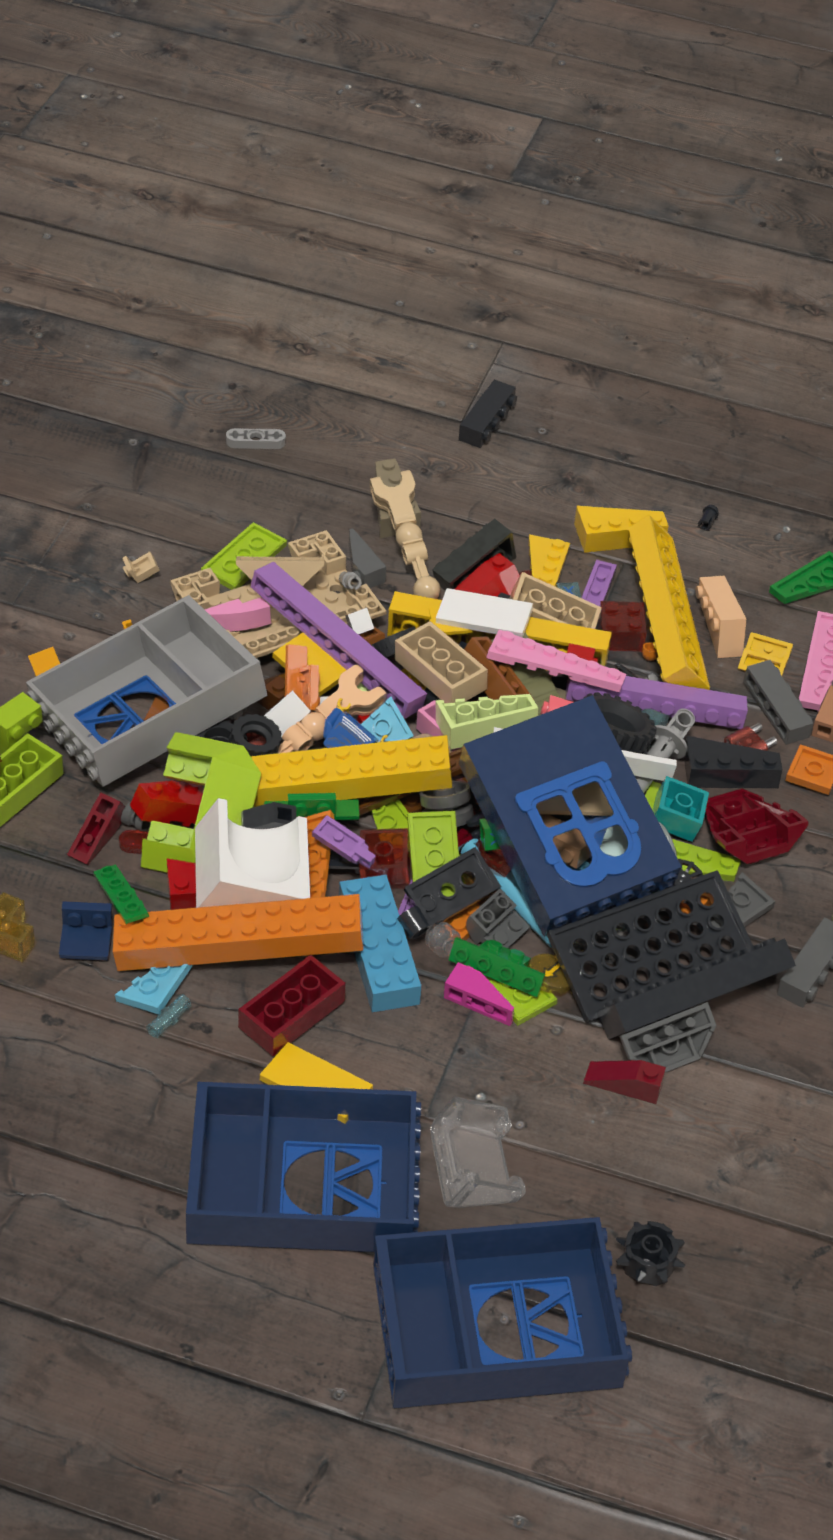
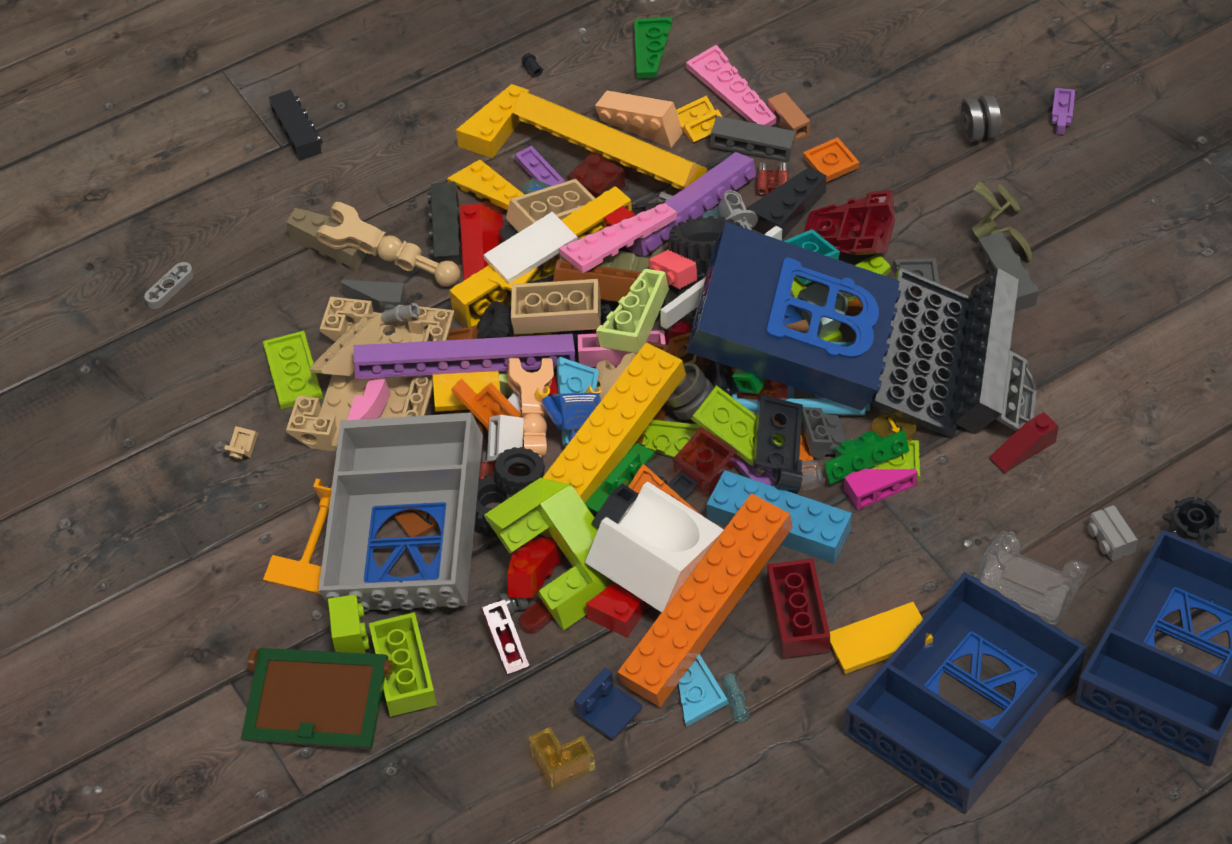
camera: 45 degrees left, 5 degrees up
(121, 894) = (599, 655): green bracket -> none
(343, 842) = (682, 474): medium lavender hinge -> none
(360, 621) = (450, 331): white tile -> none
(585, 1194) = (1112, 533): none -> light grey brick
(649, 652) = (634, 180): orange hinge -> none

